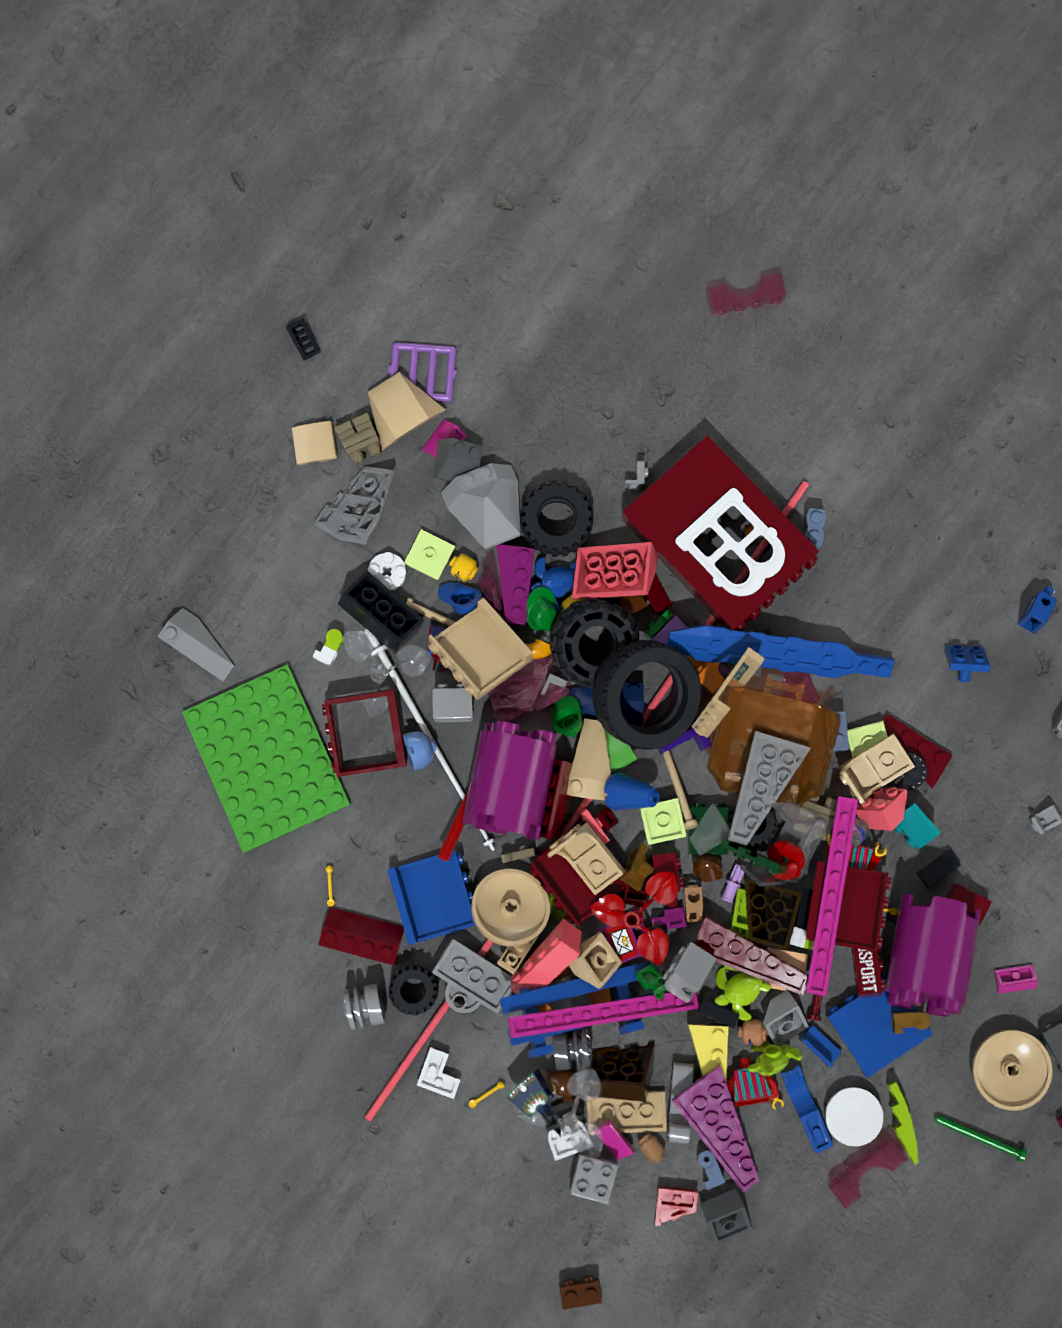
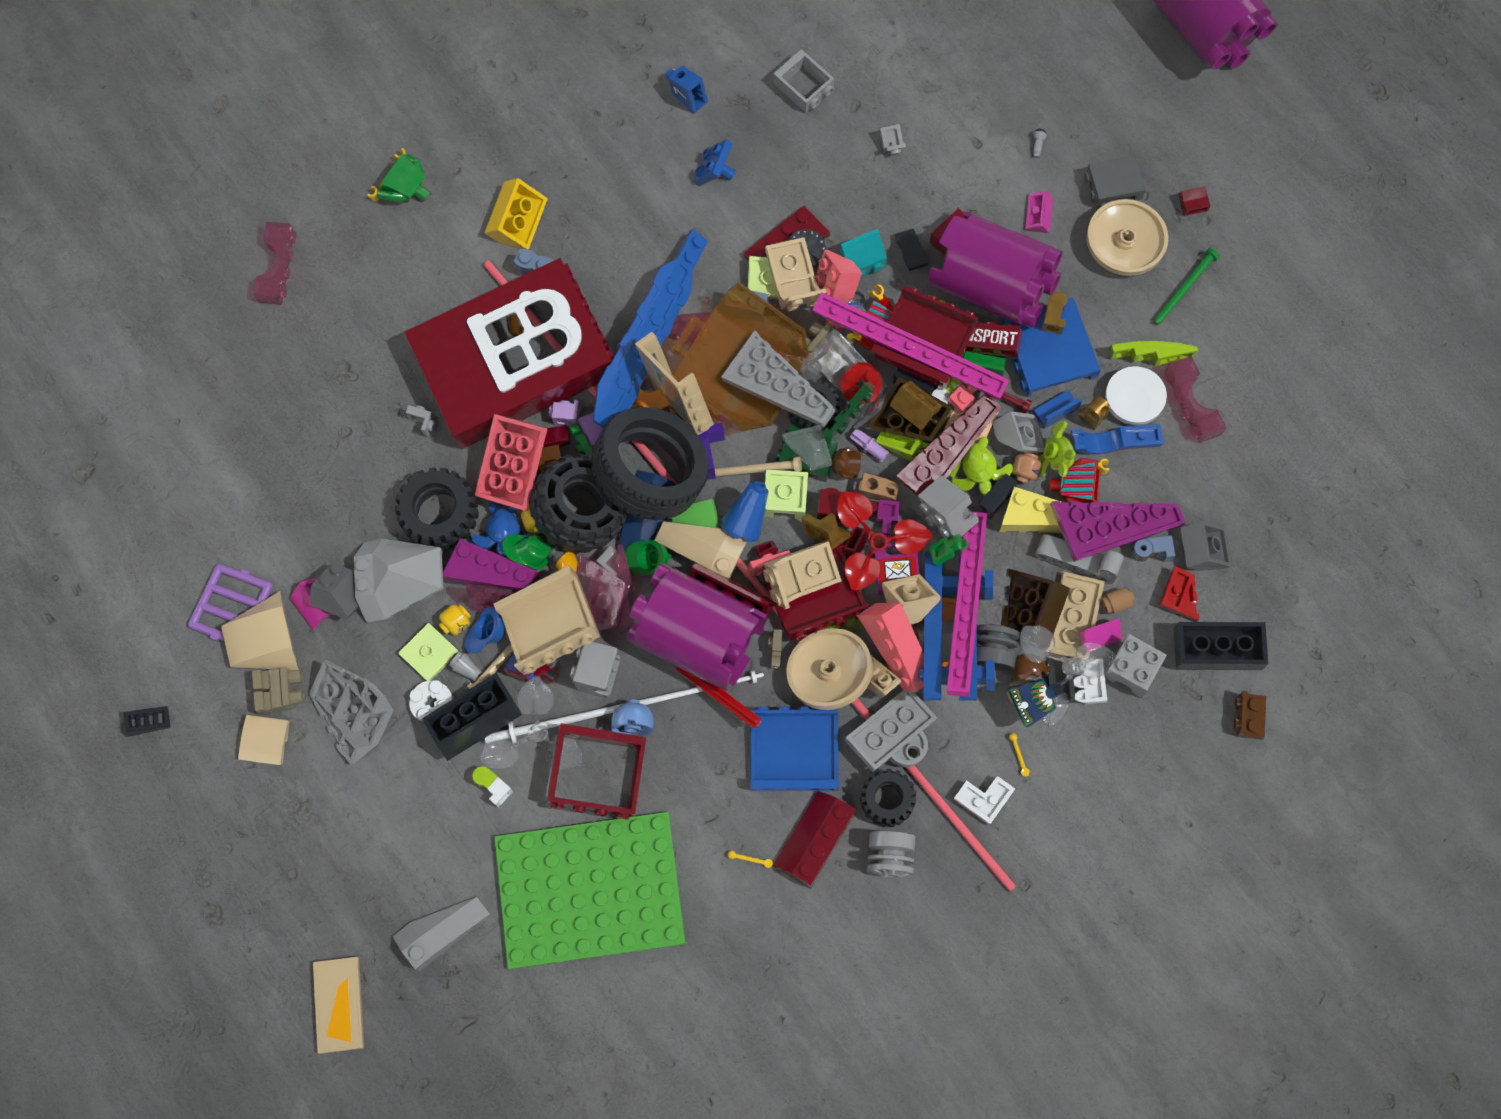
camera: 70 degrees left, 10 degrees down
(115, 582) = (338, 1005): none -> tan tile
(425, 590) = (463, 665): none -> light grey cone
(634, 1251) = (1220, 646): none -> black brick
(681, 601) = (565, 413): none -> lavender brick
(777, 916) = (915, 404): none -> pearl gold panel
(800, 955) = (961, 397): none -> coral plate
(825, 1082) = (1095, 412): none -> pearl gold leg
(843, 967) = (991, 363): none -> green panel
(860, 494) = (516, 214): none -> yellow slope
(861, 380) = (402, 181): none -> green torso

